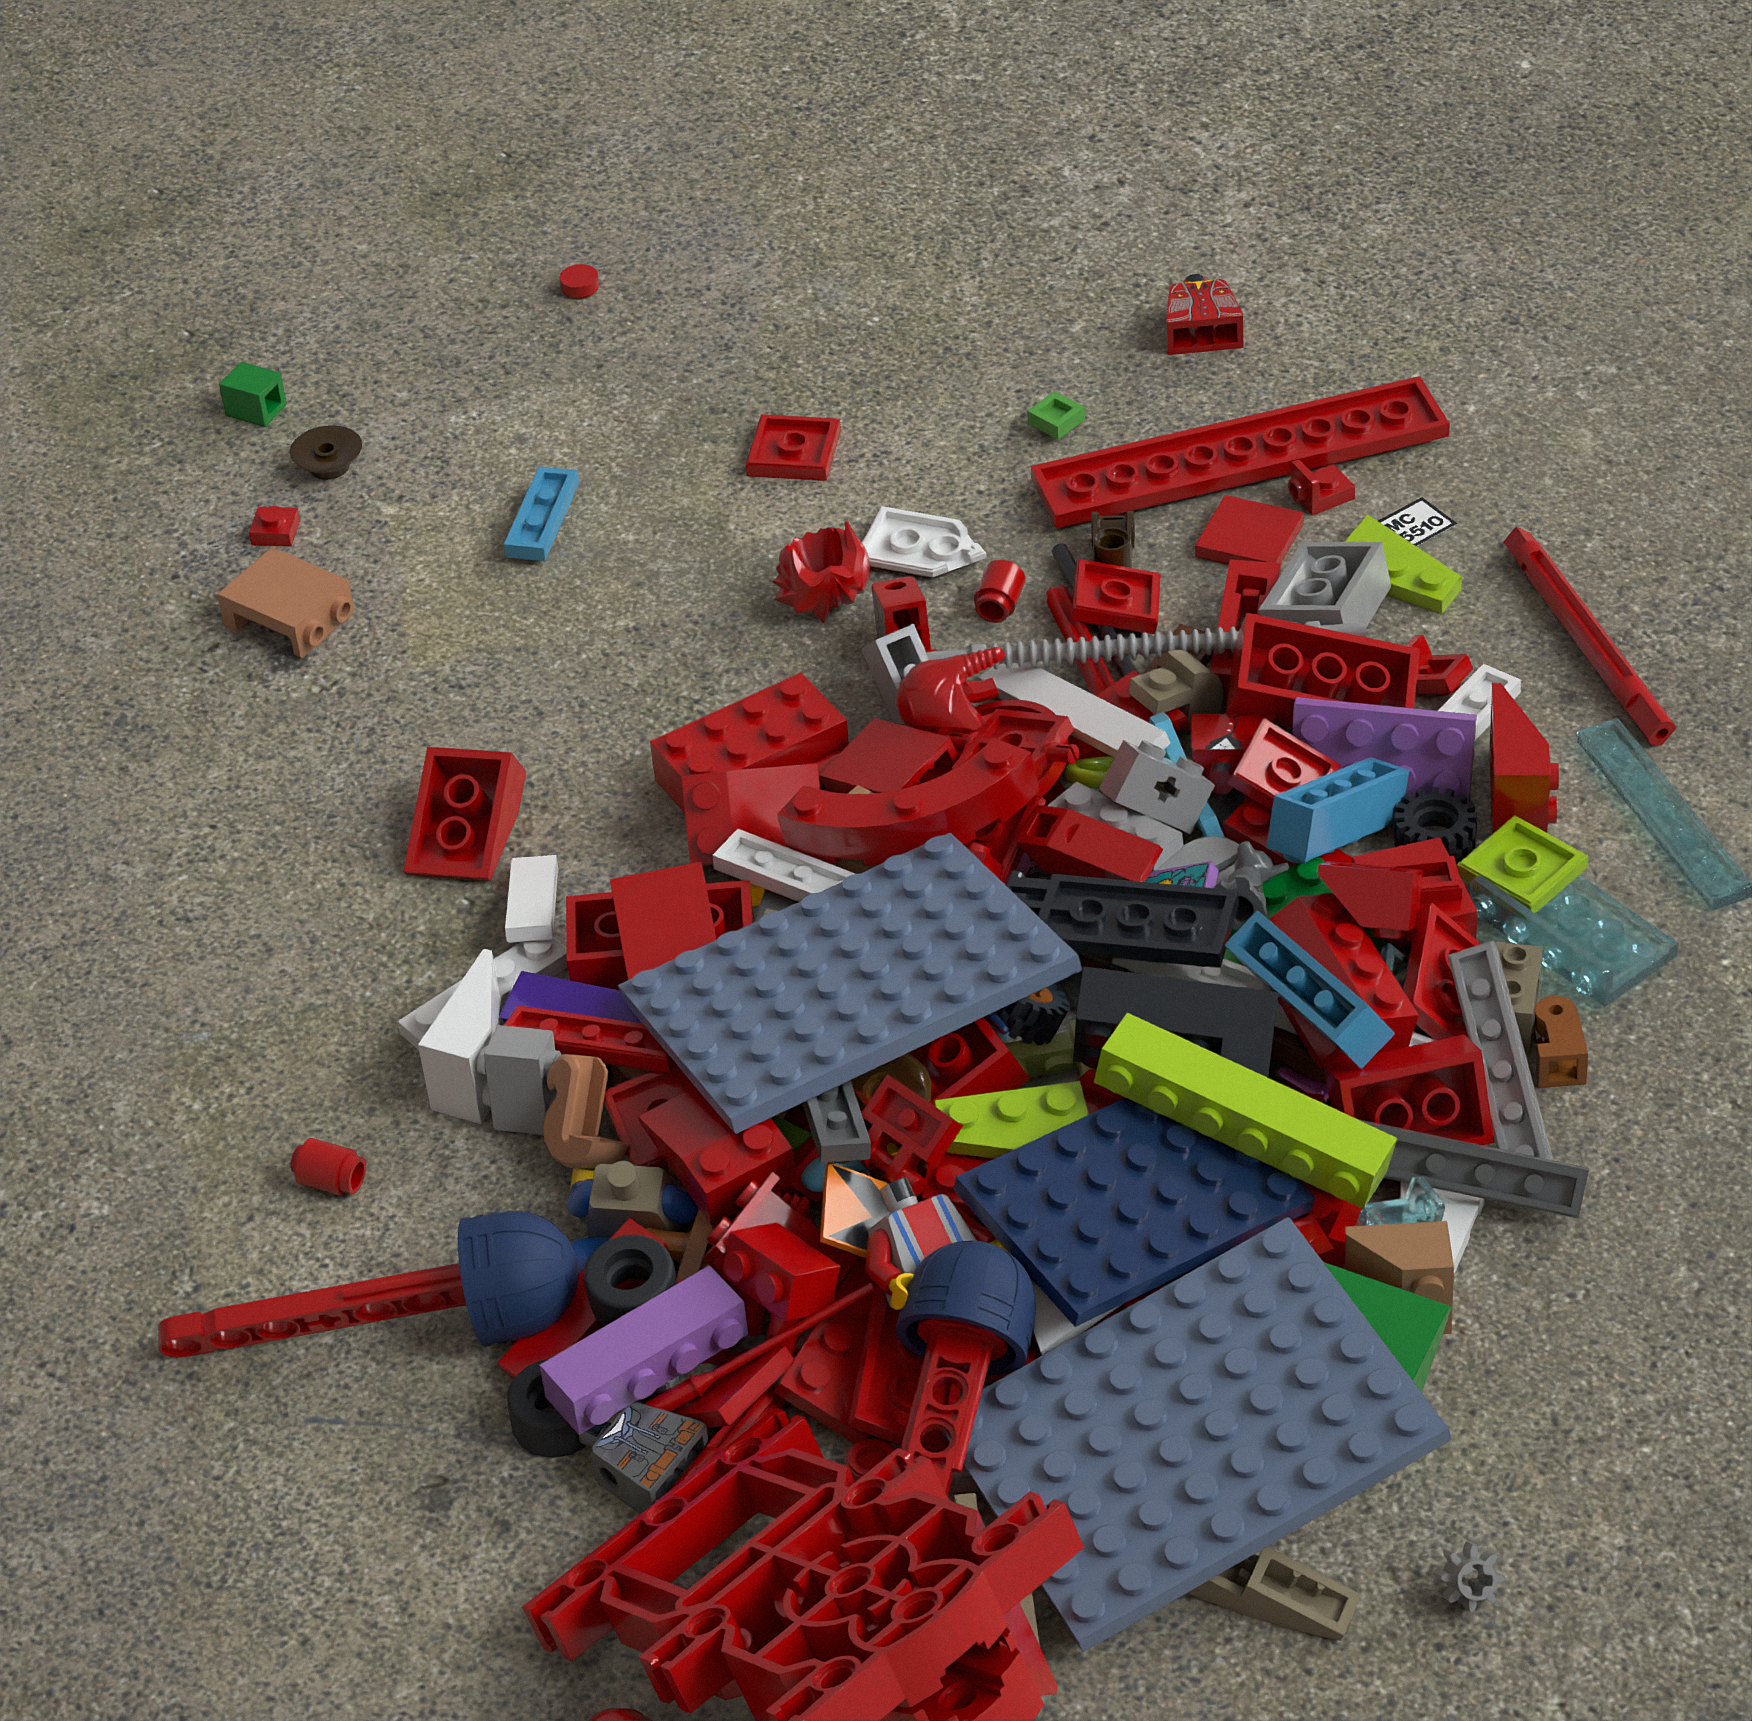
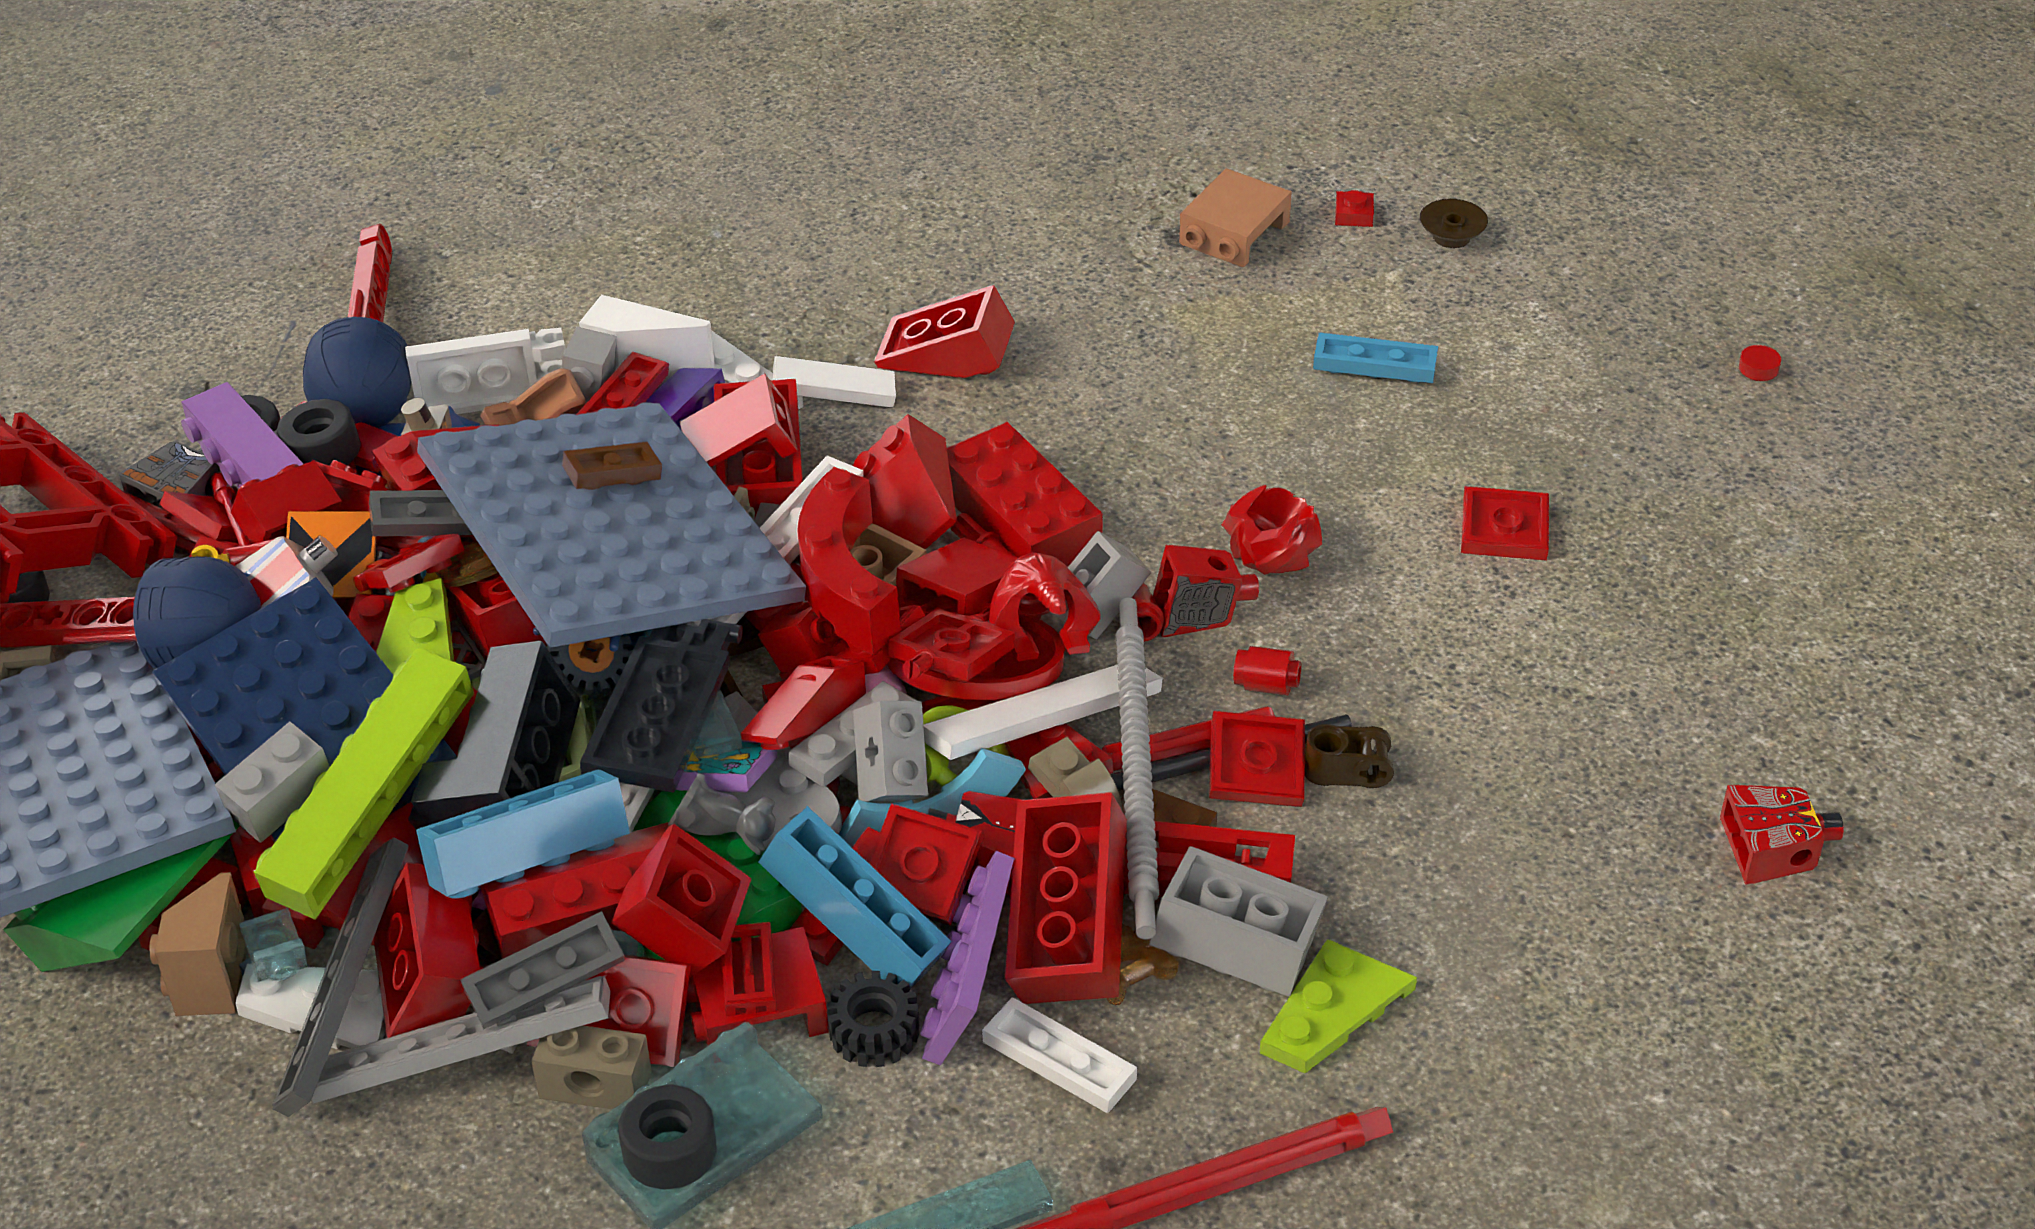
camera: 85 degrees right, 0 degrees up
(252, 394) = (1533, 173): green brick -> none
(328, 1167) = (537, 298): red brick -> none
(489, 1142) = (483, 368): none -> white tile
(793, 955) = (612, 465): none -> reddish brown plate
(919, 543) = (1350, 614): white tile -> none
(1056, 415) = (1572, 712): bright green plate -> none
(1239, 451) = (1532, 879): red plate -> none
(1248, 532) = (1383, 877): red tile -> none
(1251, 1174) = (272, 781): none -> light grey brick
(1319, 489) = (1468, 937): red bracket -> none
(1418, 521) = (1421, 1032): sticker -> none
(1439, 673) = (1135, 1022): red bracket -> none
(1456, 984) = (542, 970): none -> dark grey plate
(1519, 766) = (935, 1071): red slope -> none
(1524, 863) = (784, 1080): lime tile -> none
(1560, 1044) = (528, 1110): dark orange leg -> none
(1606, 919) = (674, 1162): none -> black tyre

